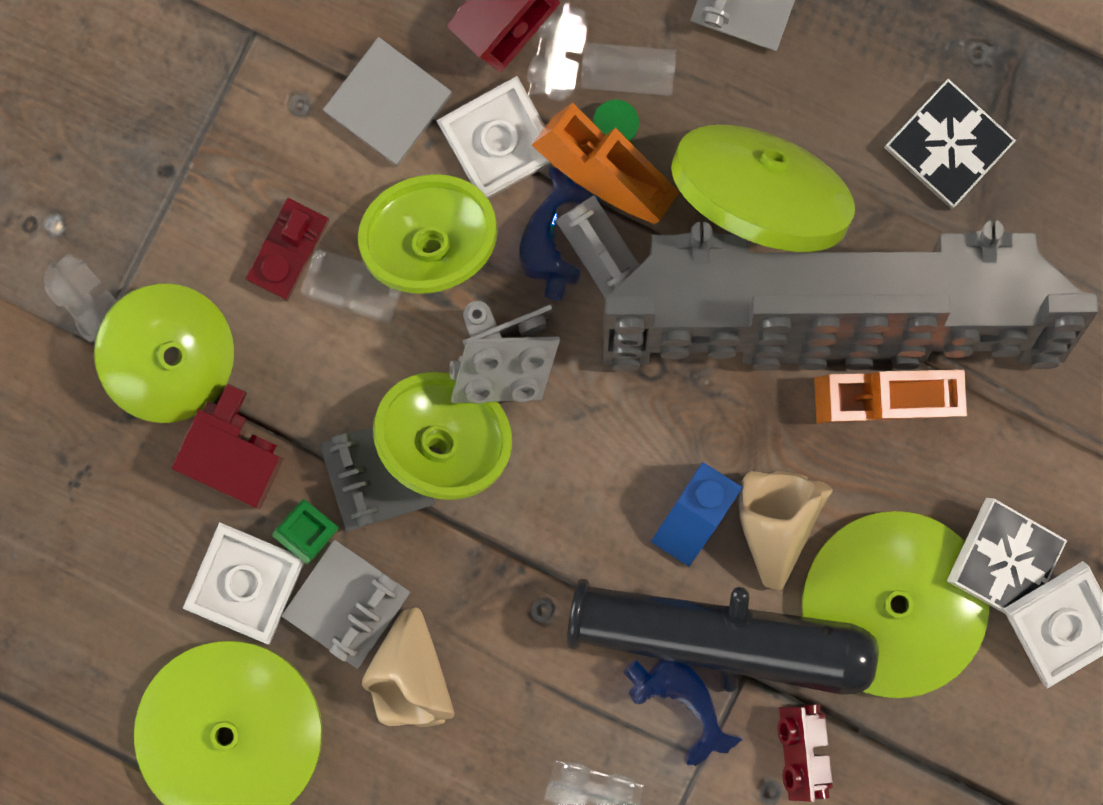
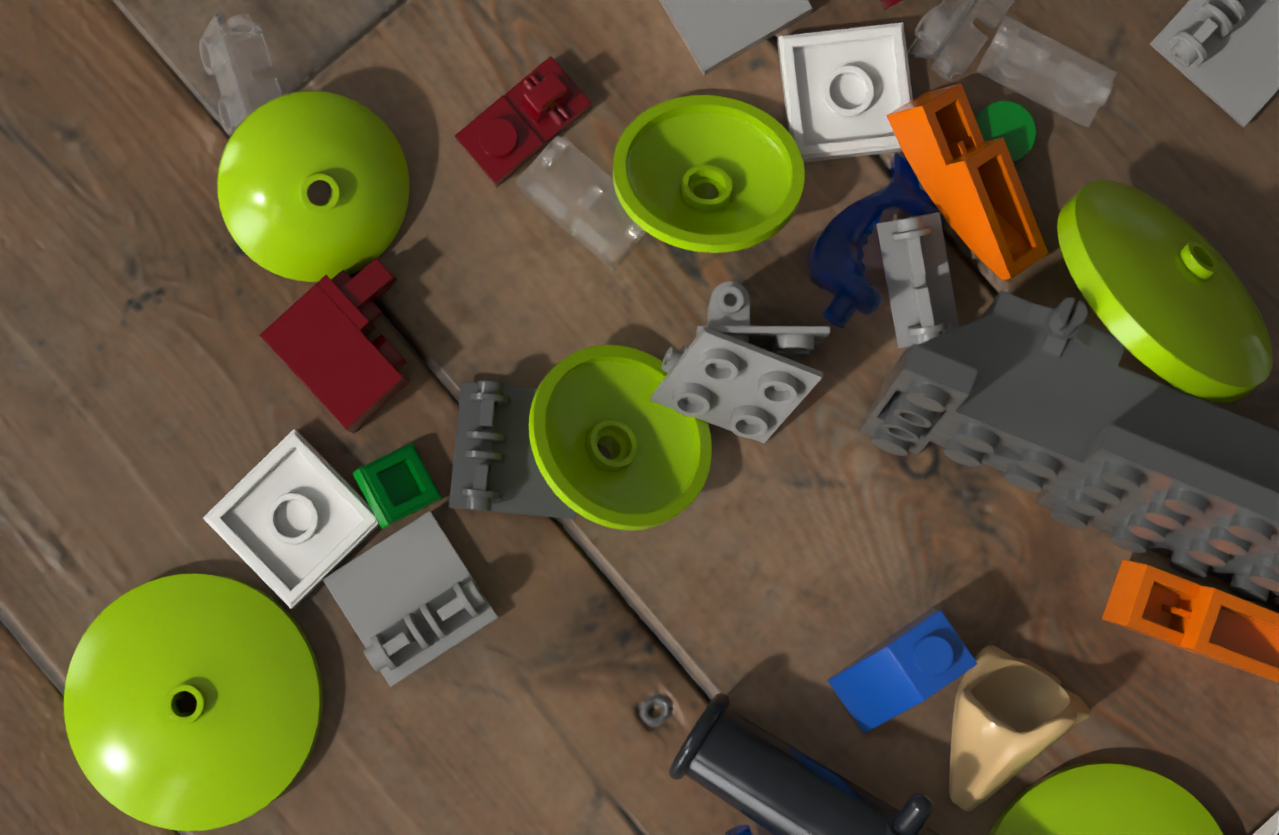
camera: 25 degrees right, 0 degrees up
(408, 676) = (450, 723): tan hat -> none

